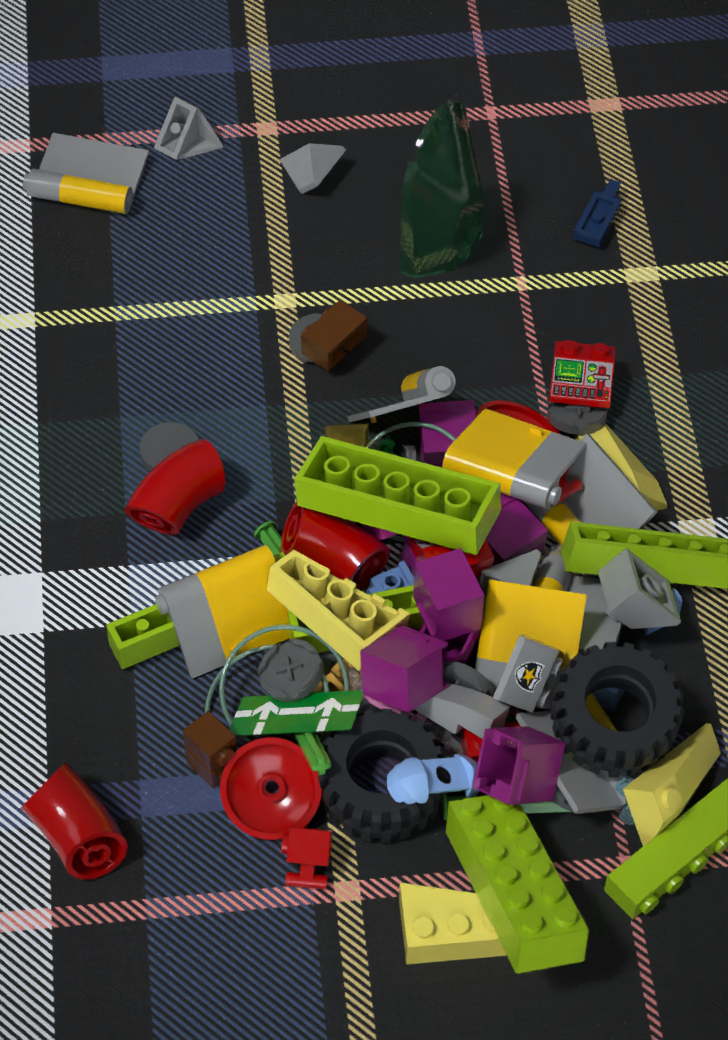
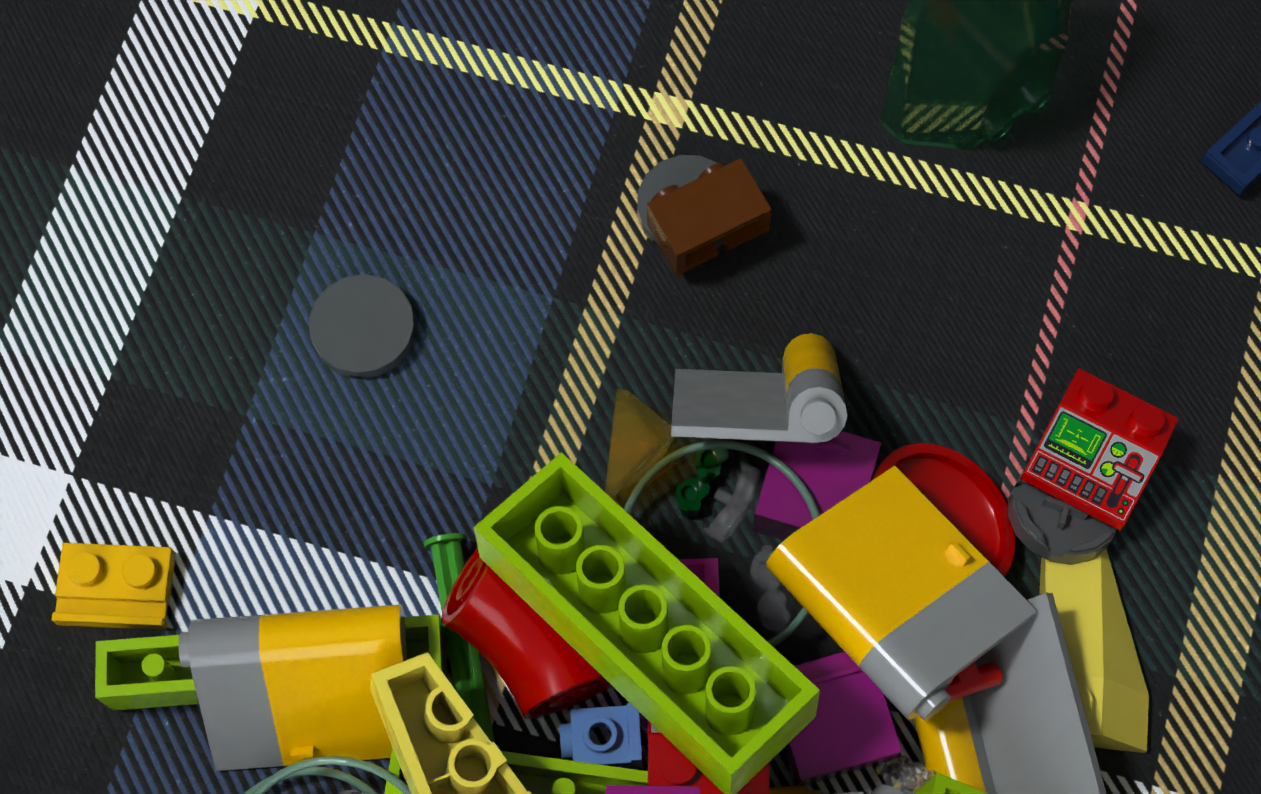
camera: 25 degrees right, 15 degrees up
(89, 612) = (114, 586): none -> yellow plate
(177, 487) = (325, 417): red brick -> none

